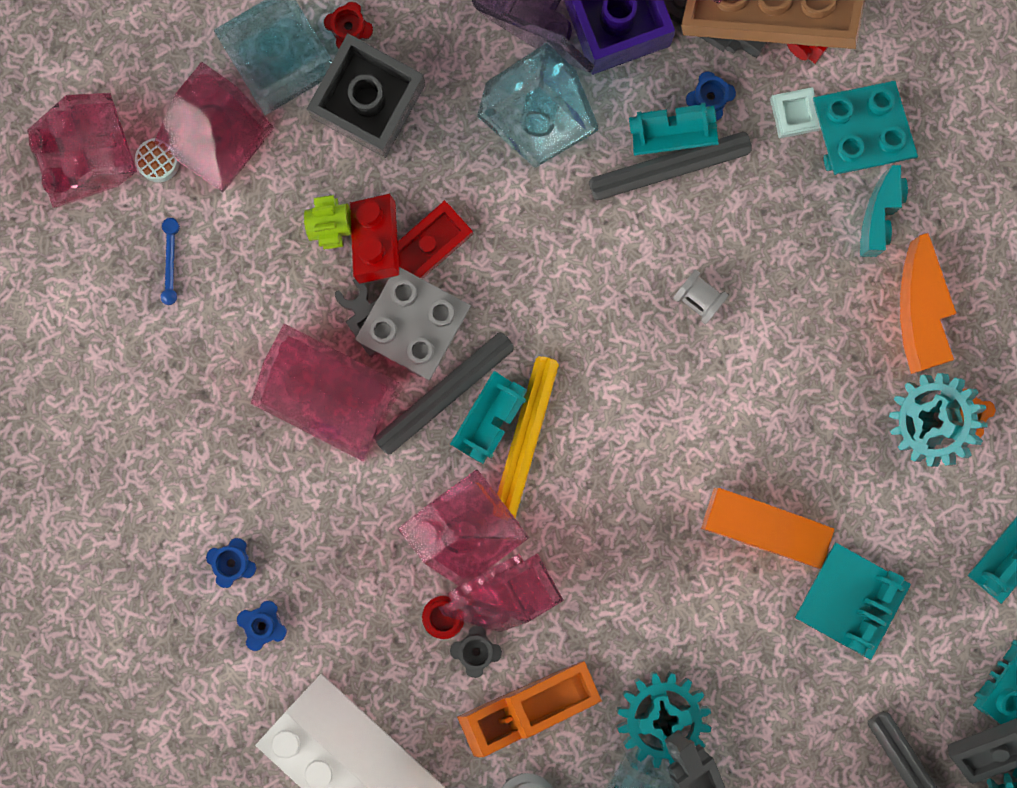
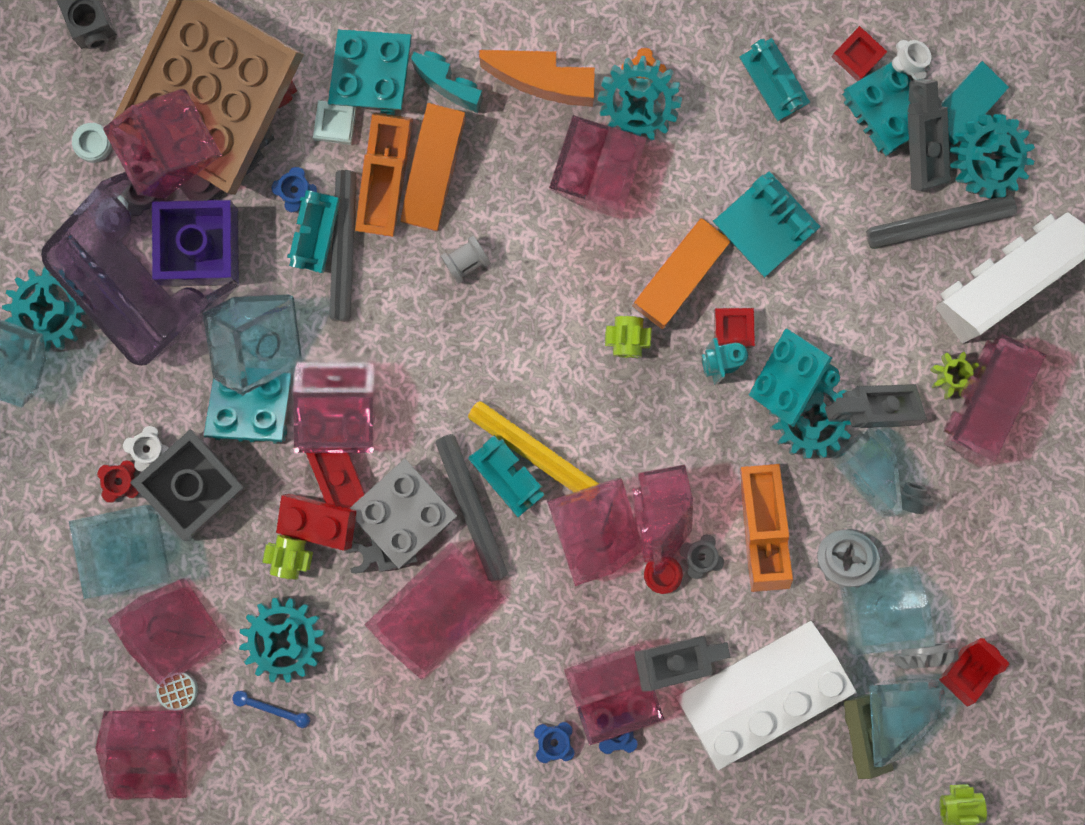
camera: 75 degrees left, 0 degrees up
(237, 263) = (267, 630): none -> teal gear
(300, 606) = (611, 695): none -> clear pink slope
(354, 664) = (678, 662): none -> dark grey hinge
(390, 29) = (135, 447): none -> white plate
(460, 135) = (250, 417): none -> teal hinge
(498, 214) = (334, 407): none -> clear pink slope
(679, 494) = (628, 337): none -> lime gear
(691, 603) = (722, 359): none -> teal hinge
(699, 684) = (792, 377): none -> teal hinge
(729, 604) = (734, 326): none -> red plate
(760, 180) = (383, 173): none -> orange slope
(787, 228) = (433, 166): none -> orange slope
(849, 400) = (597, 166): none -> clear pink slope

